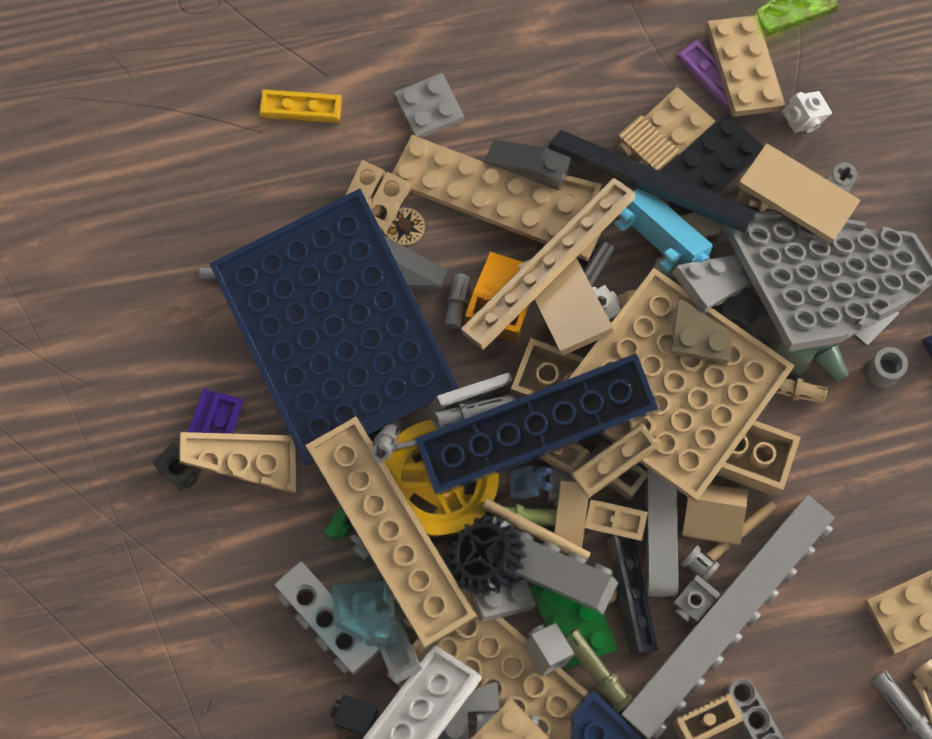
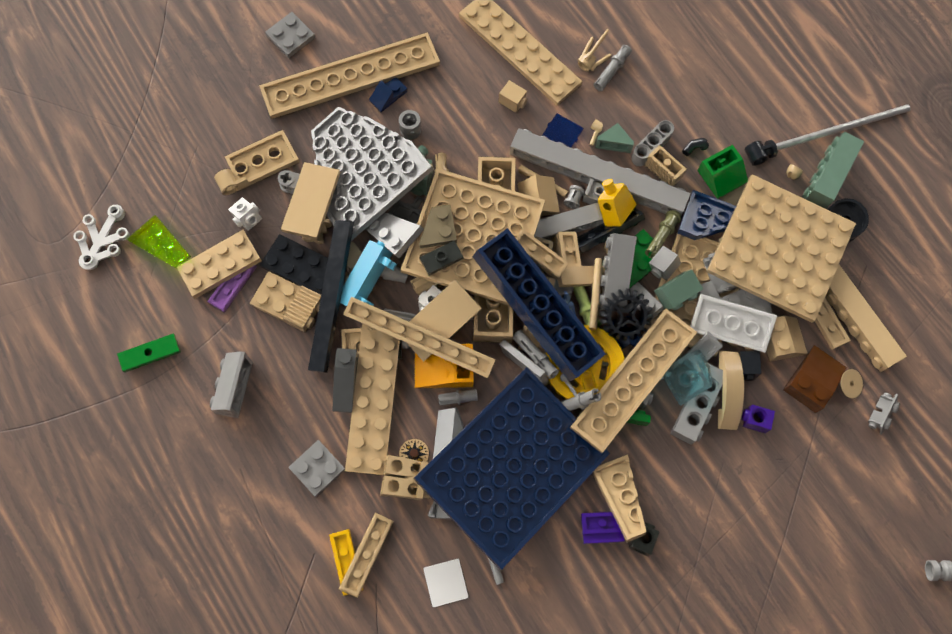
camera: 110 degrees left, 0 degrees up
(229, 211) = (445, 582): none -> white sticker
(260, 698) = (766, 418): none -> dark purple brick
(298, 127) = (365, 555): none -> tan tile
(329, 670) = (732, 392): none -> tan slope
(497, 649) = (678, 290): none -> sand green brick
(570, 35) = (231, 384): none -> light grey slope
(652, 323) = (441, 258): none -> pearl dark grey plate
(666, 613) = (615, 203): none -> yellow torso
(778, 663) = (615, 140): none -> sand green slope
(807, 648) = (597, 127): none -> tan hand
(815, 592) = (563, 130): none -> clear blue piece
(862, 112) = (233, 181): none -> tan hinge
(894, 534) = (513, 96): none -> tan brick

